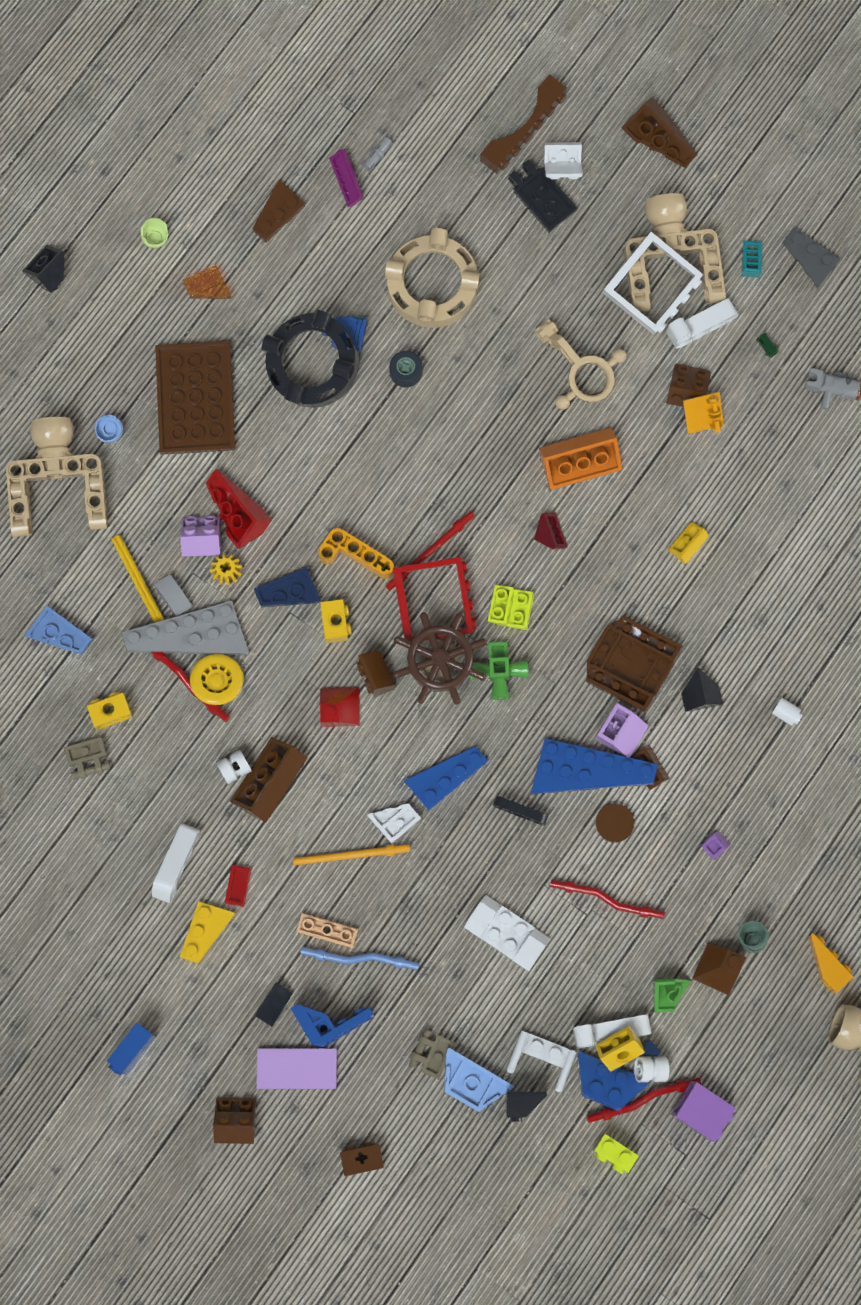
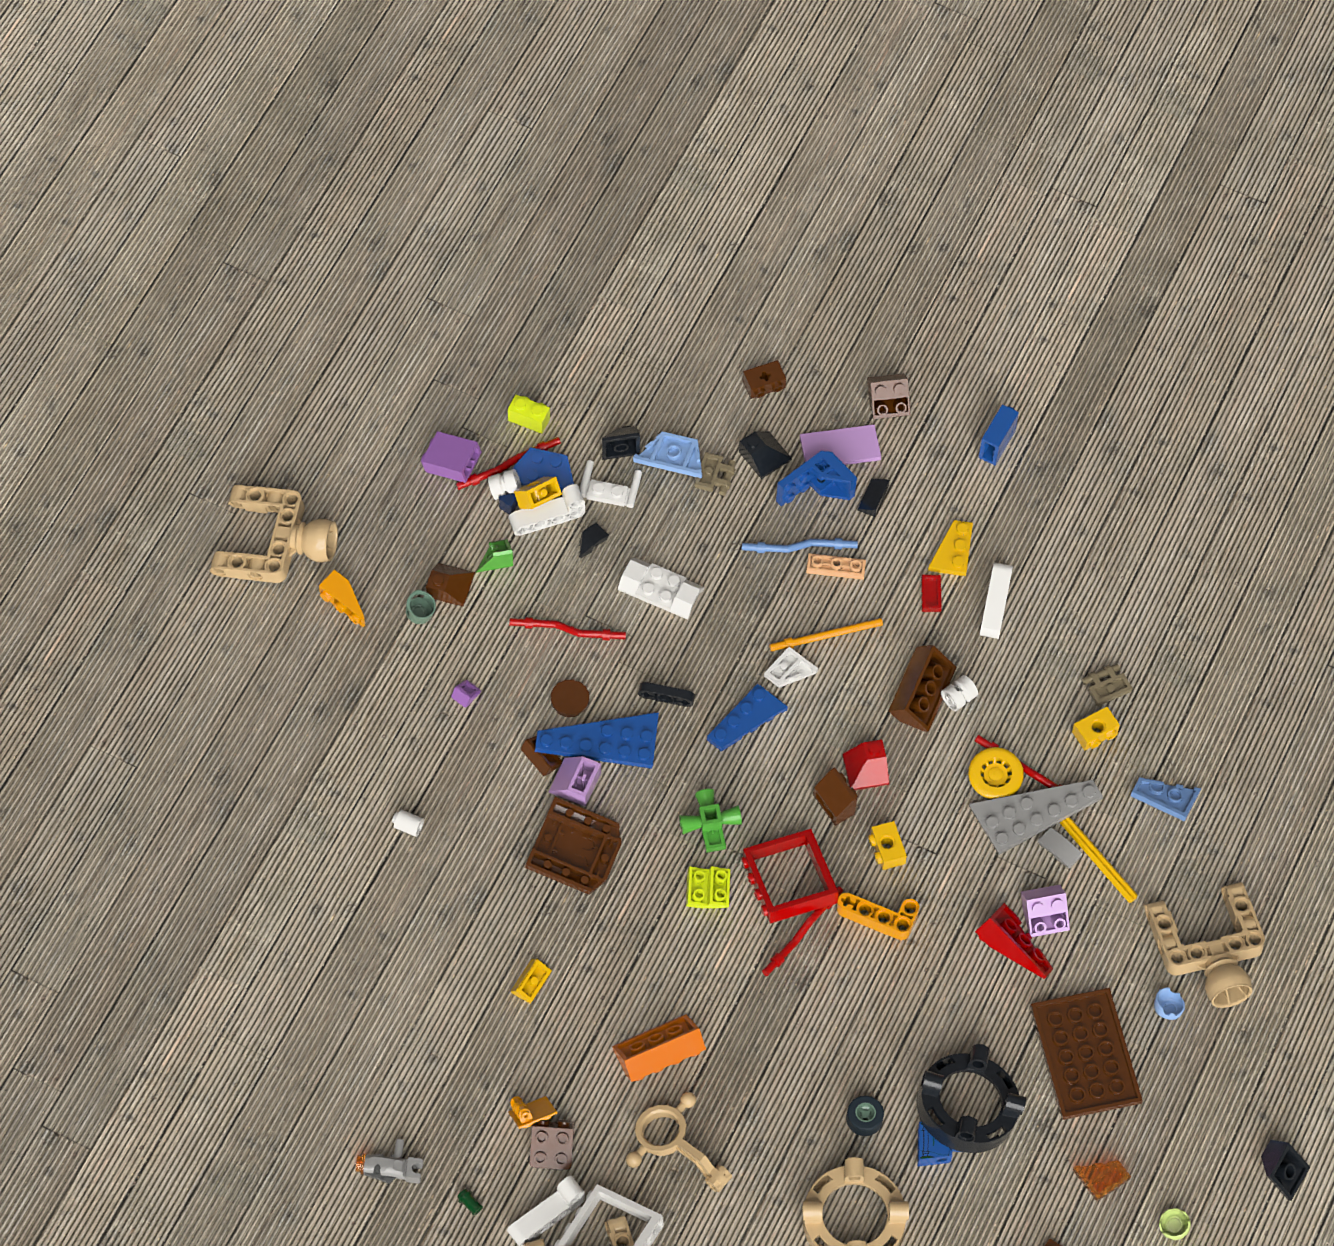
camera: 170 degrees right, 15 degrees down
(222, 564) = (1008, 887): yellow gear -> none
(288, 590) = (941, 871): dark blue wing -> none
(376, 1072) = (763, 453): none -> black slope
(441, 659) = (769, 826): reddish brown brick -> none
(549, 532) = (678, 967): dark red slope -> none
(569, 997) = (590, 538): none -> black slope
(701, 692) = (497, 827): black slope -> none

